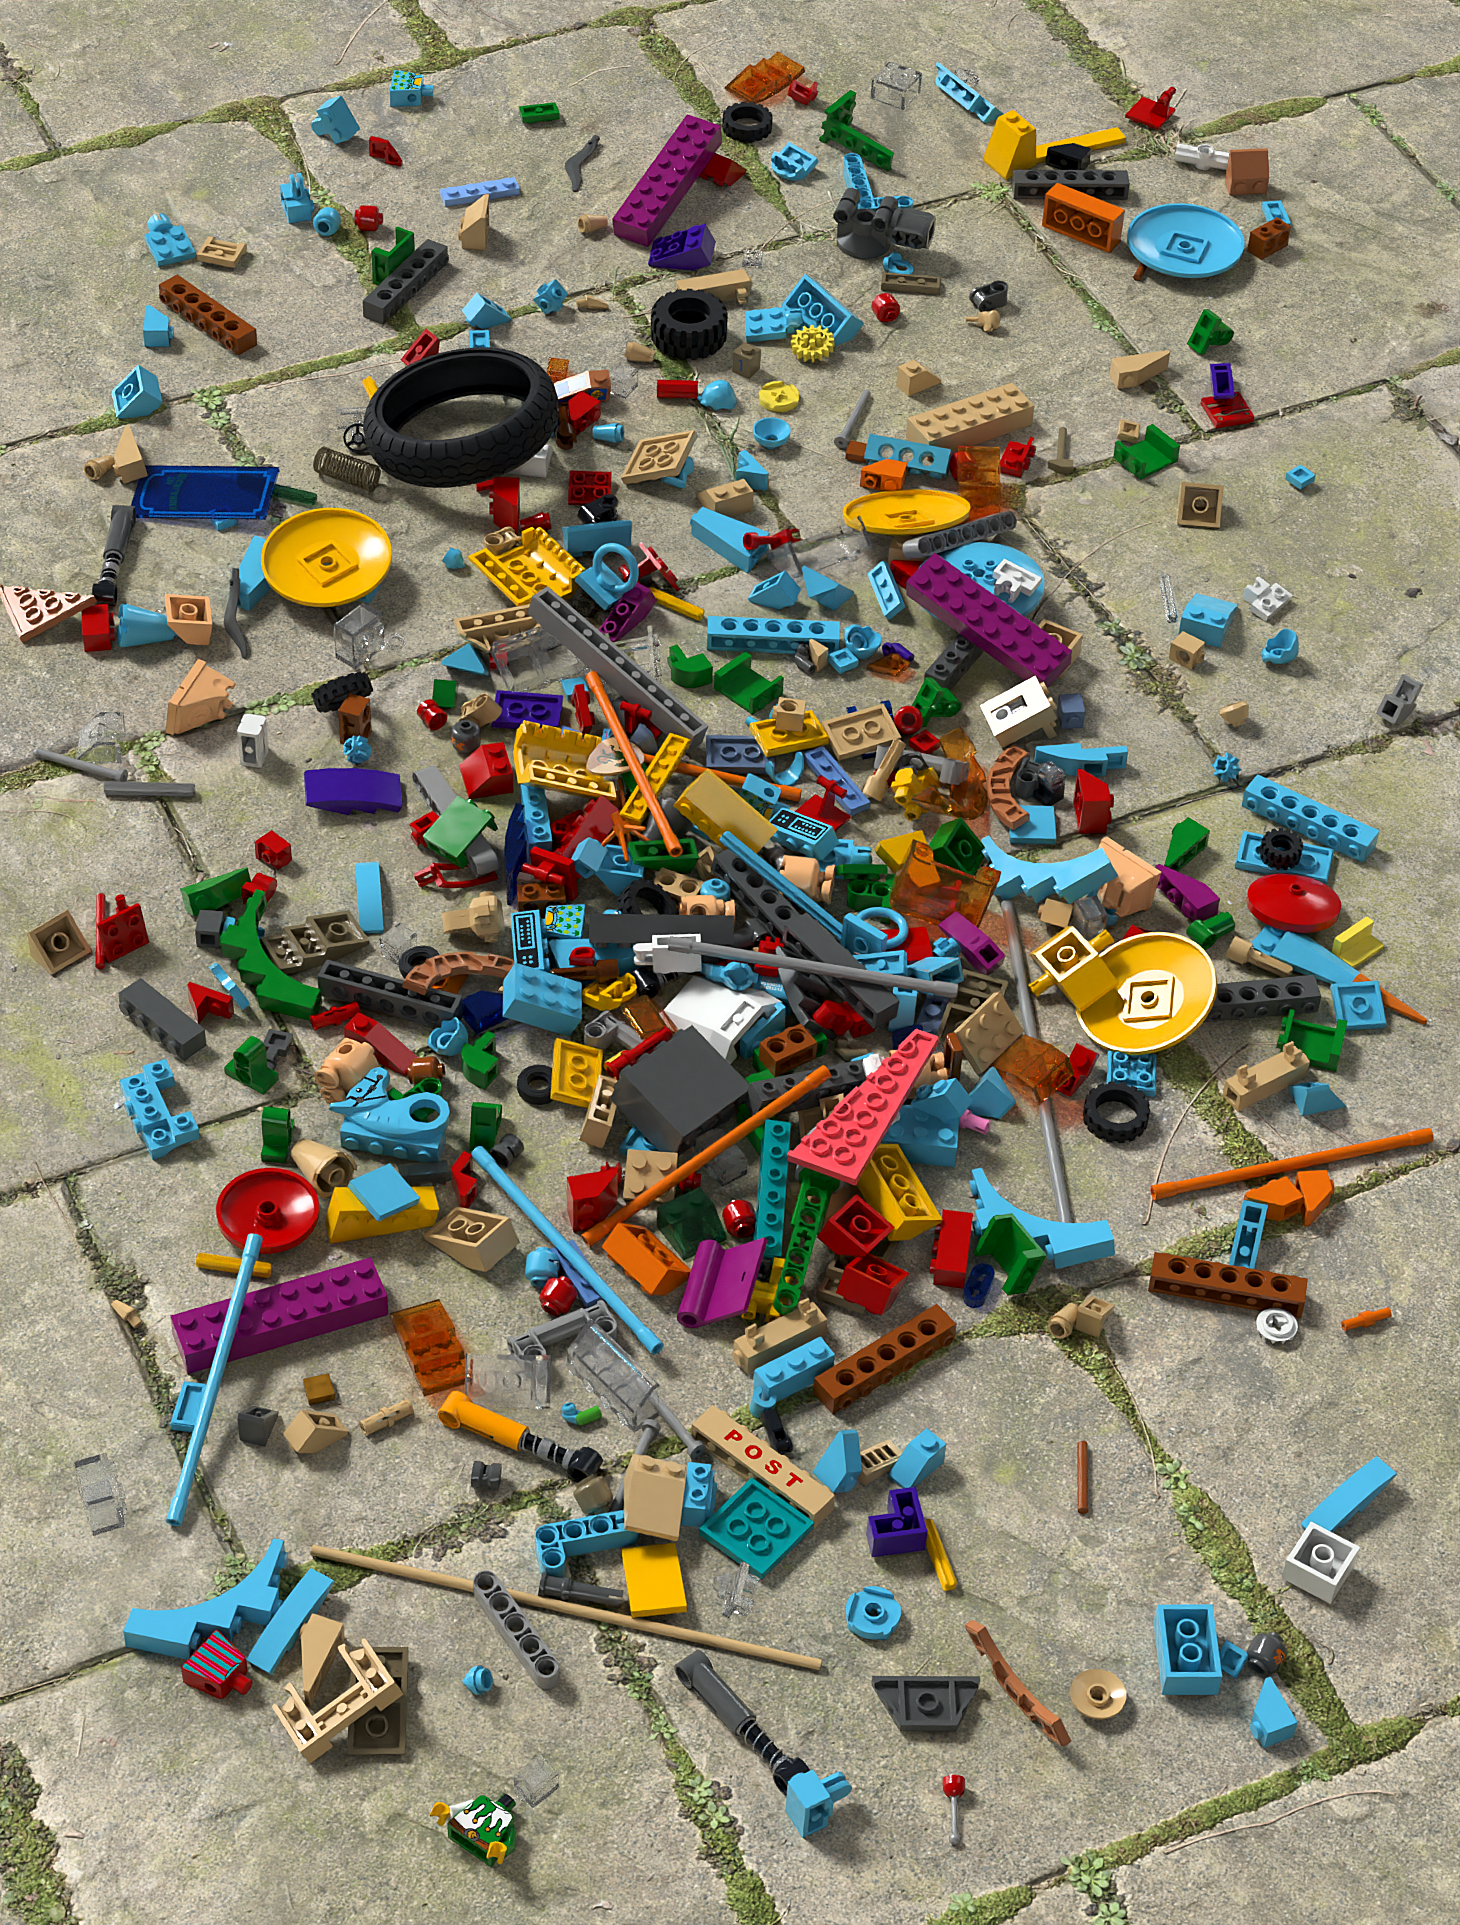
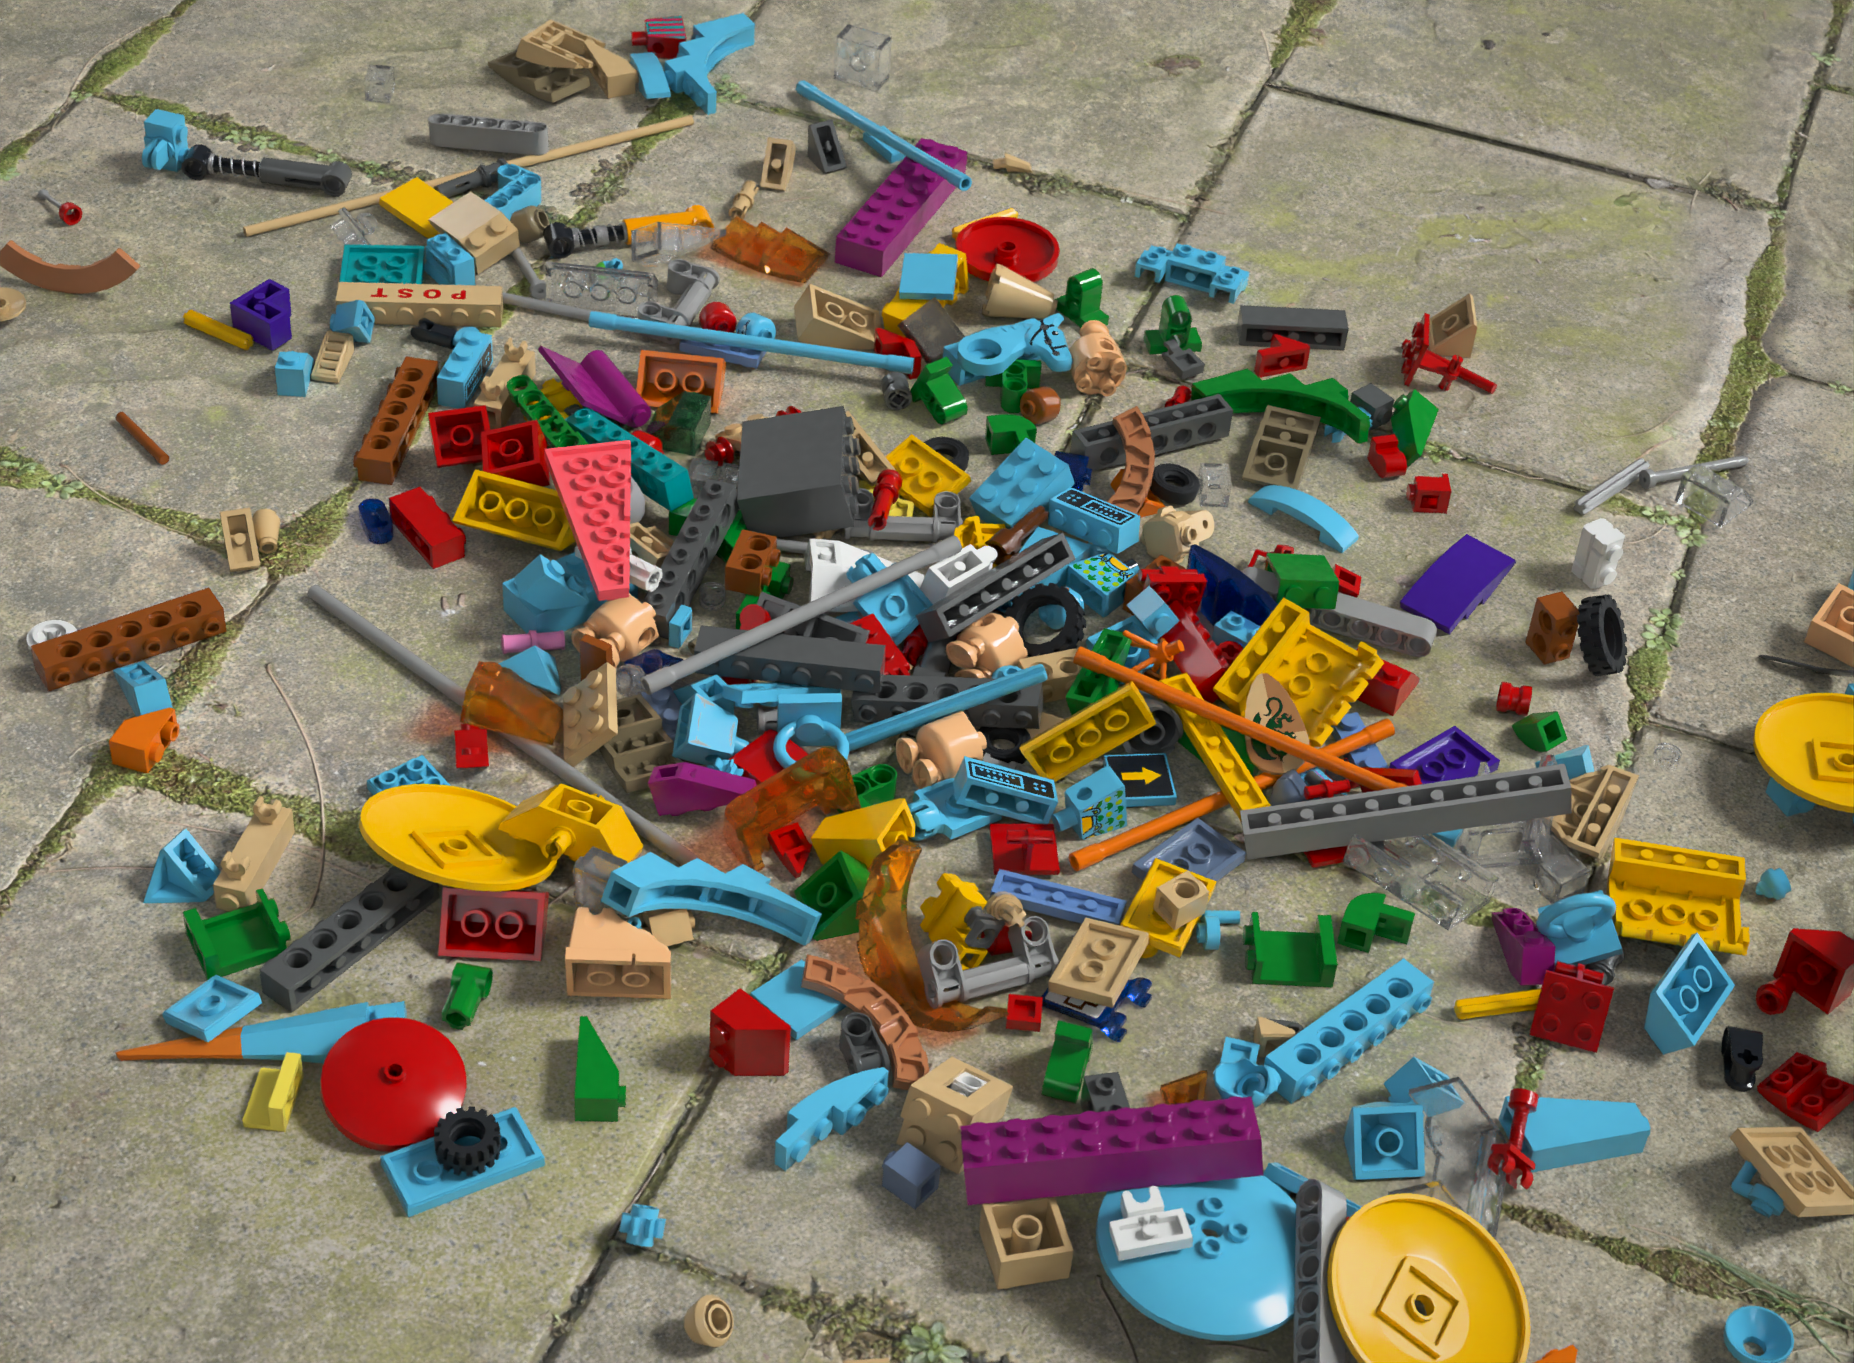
camera: 135 degrees right, 5 degrees down
(198, 699) = (1707, 562): light nougat piece -> none
(229, 985) = (1268, 365): medium azure tile -> none
(319, 1389) = (815, 194): pearl gold tile -> none
(357, 749) = (1514, 617): medium azure gear -> none
(359, 635) = (1692, 711): clear brick -> none
(386, 1046) = (1106, 403): red slope -> none
(449, 1038) = (1054, 436): medium azure hair -> none
(466, 736) = (1448, 691): dark grey head -> none
(478, 1680) = (484, 108): medium azure plate -> none
(481, 710) = (1476, 721): tan piece -> none
(481, 1826) = (387, 46): torso -> none
(486, 1475) = (623, 201): dark grey wheel -> none
(502, 541) = (1765, 934): tan piece -> none
(582, 956) = (1033, 533): red tile -> none
(591, 1198) = (777, 376): red slope -> none
(602, 1228) = (681, 510): orange piece -> none
(646, 1016) = (912, 536): clear orange slope -> none
(728, 499) = (1663, 1191): tan slope -> none
(751, 471) = (1684, 1256): medium azure slope -> none
(762, 1029) = (801, 586): medium azure wing -> none
(790, 775) = (1119, 865): medium azure helmet -> none
(852, 871) = (902, 782): green plate -> none
(873, 1627) = (245, 274): medium azure plate -> none
(908, 720) = (1069, 1008): red head -> none
(926, 1701) = (144, 240): dark grey wing -> none
(1013, 1250) = (359, 539): green panel -> none
(1050, 784) = (822, 1038): leg -> none
(1063, 1242) = (363, 565): medium azure arch -> none
(1118, 1093) = (386, 713): black tyre -> none
(1172, 1188) = (37, 897): orange piece -> none
(1188, 894) = (531, 1018): magenta slope -> none
(1243, 952) = (403, 986): tan piece -> none
(1310, 818) = (472, 1227): medium azure brick -> none
(1316, 1193) = (107, 769): orange slope -> none

